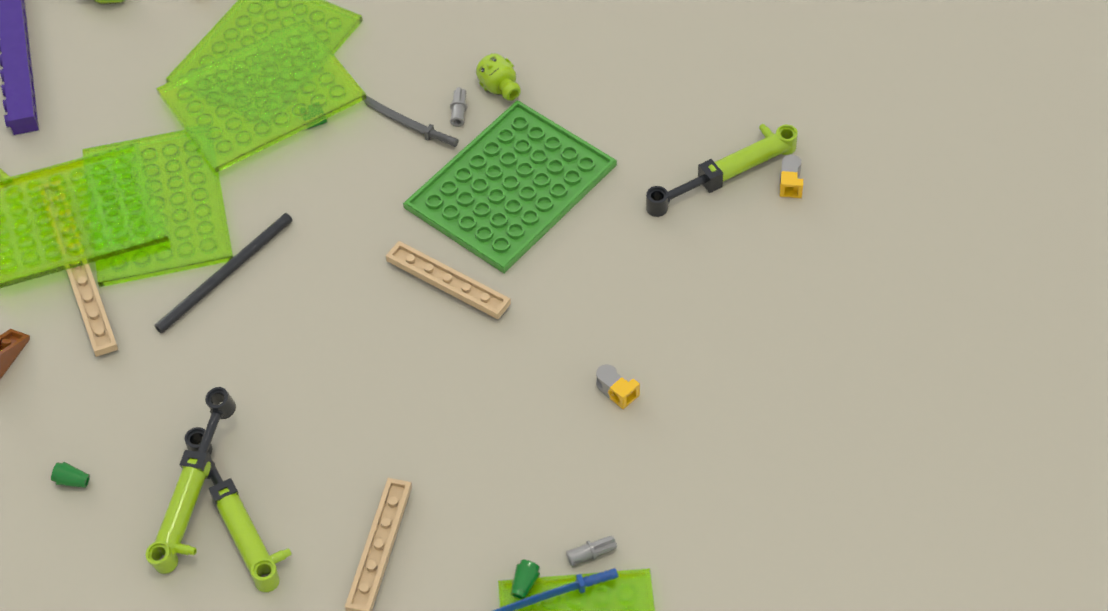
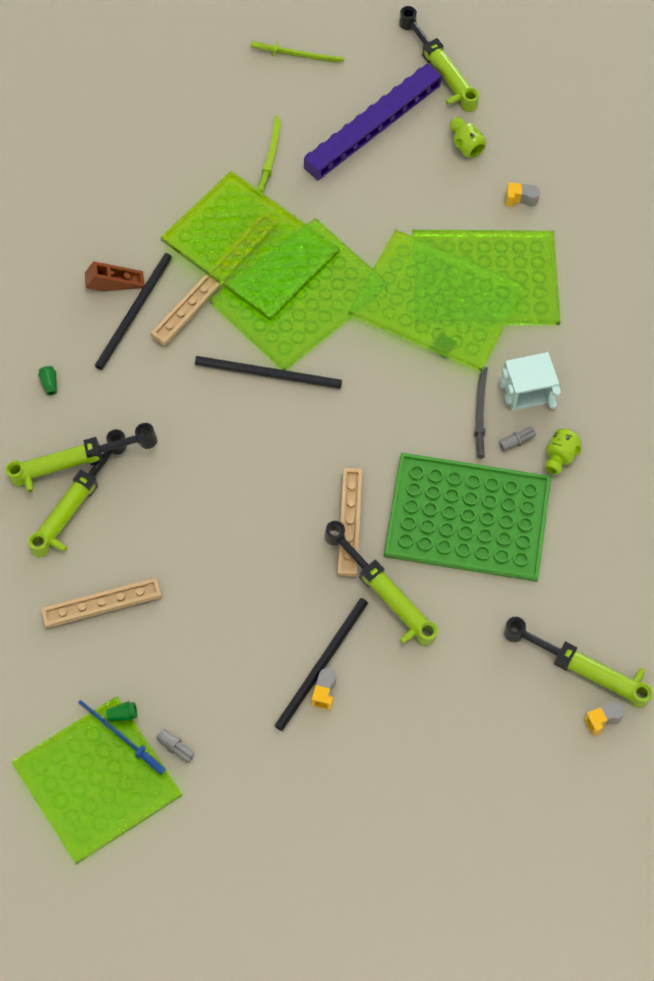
camera: 55 degrees right, 10 degrees up
(53, 360) = (133, 311): none -> black piece
(411, 62) = (530, 382): none -> light aqua container
(524, 283) = (374, 577): none -> lime piece
(586, 379) = (321, 664): none -> black piece

